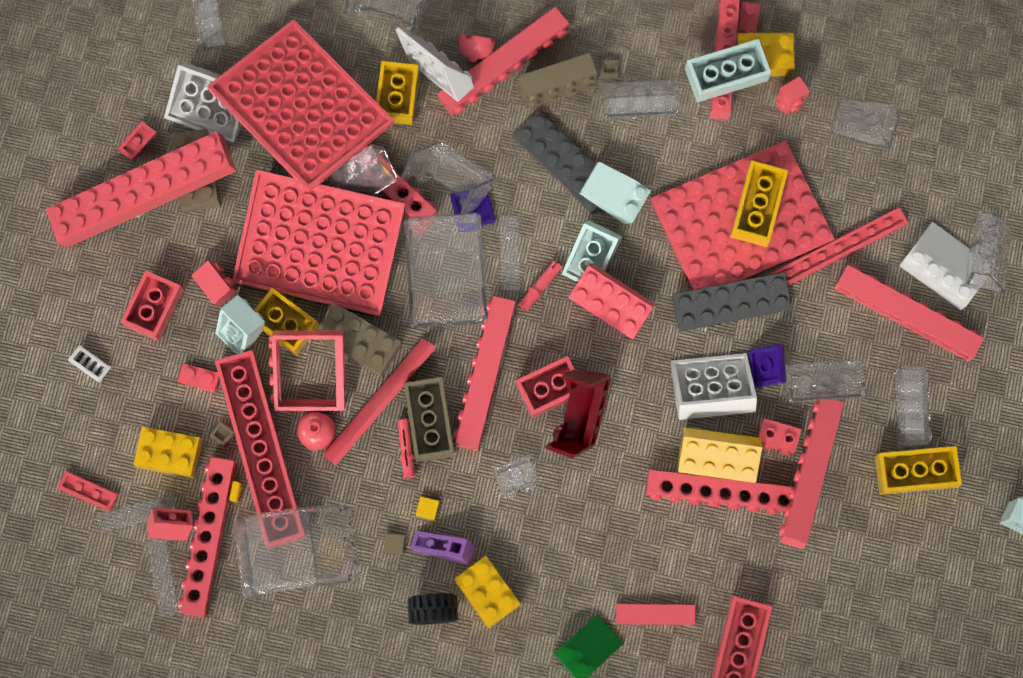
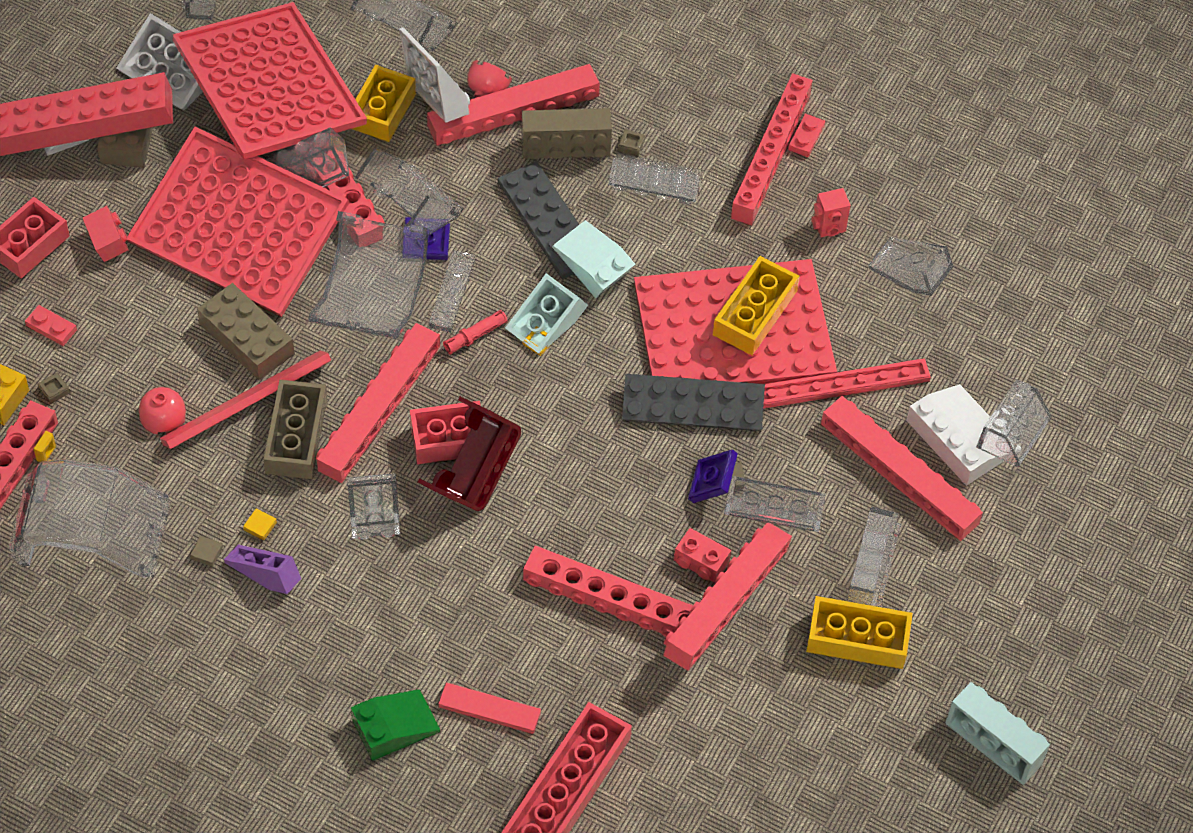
camera: 15 degrees right, 20 degrees down
(137, 141) = (80, 78): coral plate -> none
(239, 325) = (114, 275): light aqua slope -> none
(256, 433) = (92, 383): coral brick -> none
(285, 316) = (167, 289): yellow brick -> none
(307, 404) = (212, 347): coral window -> none
(406, 449) = (256, 464): coral pin -> none
(432, 608) = (224, 621): black tyre -> none
(487, 592) = (296, 627): yellow brick -> none
(612, 301) = (552, 363): coral brick -> none
(713, 386) = (641, 485): white slope -> none
(719, 455) = (623, 551): yellow brick -> none
(727, 70) = (761, 161): light aqua brick -> none
(777, 49) = (812, 167): yellow brick -> none

